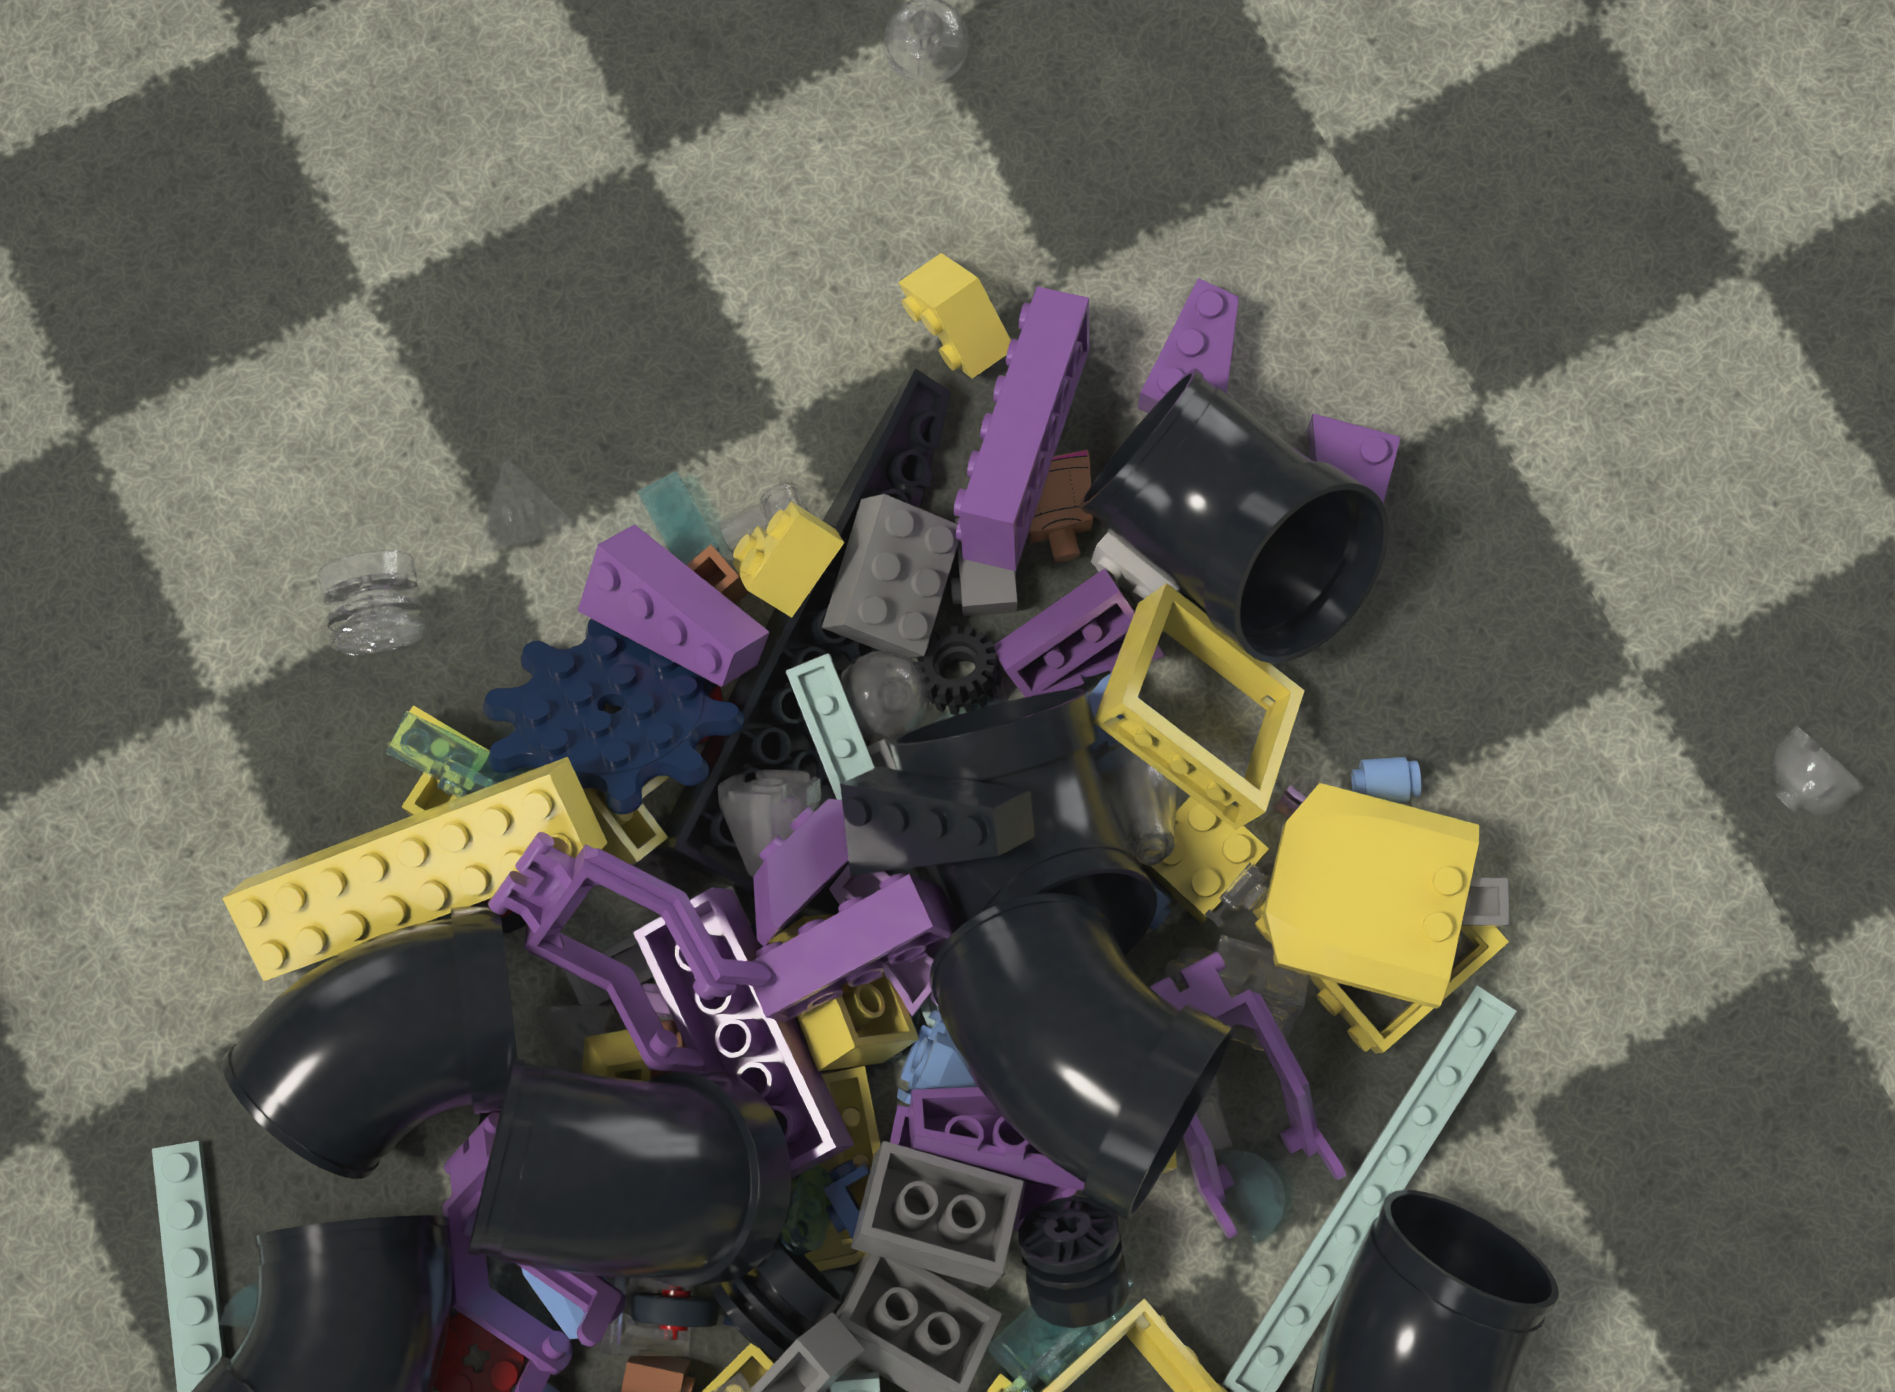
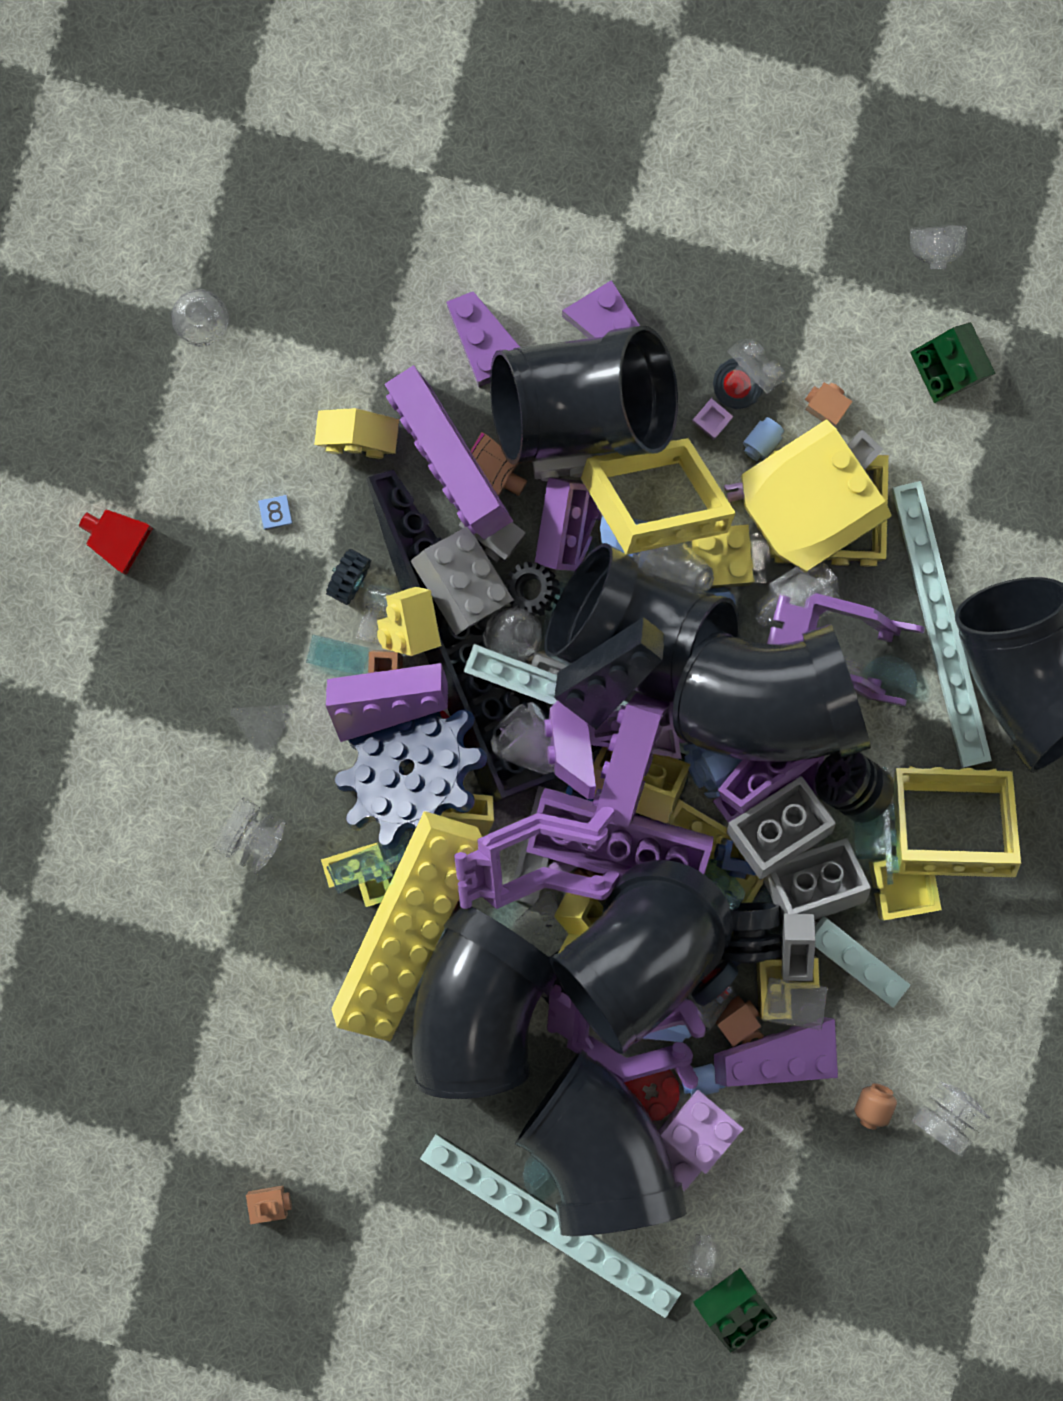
camera: 50 degrees left, 10 degrees up
(590, 165) = (116, 538): none -> red torso
(779, 450) = (348, 576): none -> black wheel
(782, 311) = (275, 512): none -> light blue tile
(1354, 701) = (712, 418): none -> lavender plate
(1440, 692) = (745, 376): none -> clear plate
(1501, 817) = (827, 403): none -> nougat brick
(1692, 920) = (952, 362): none -> dark green slope

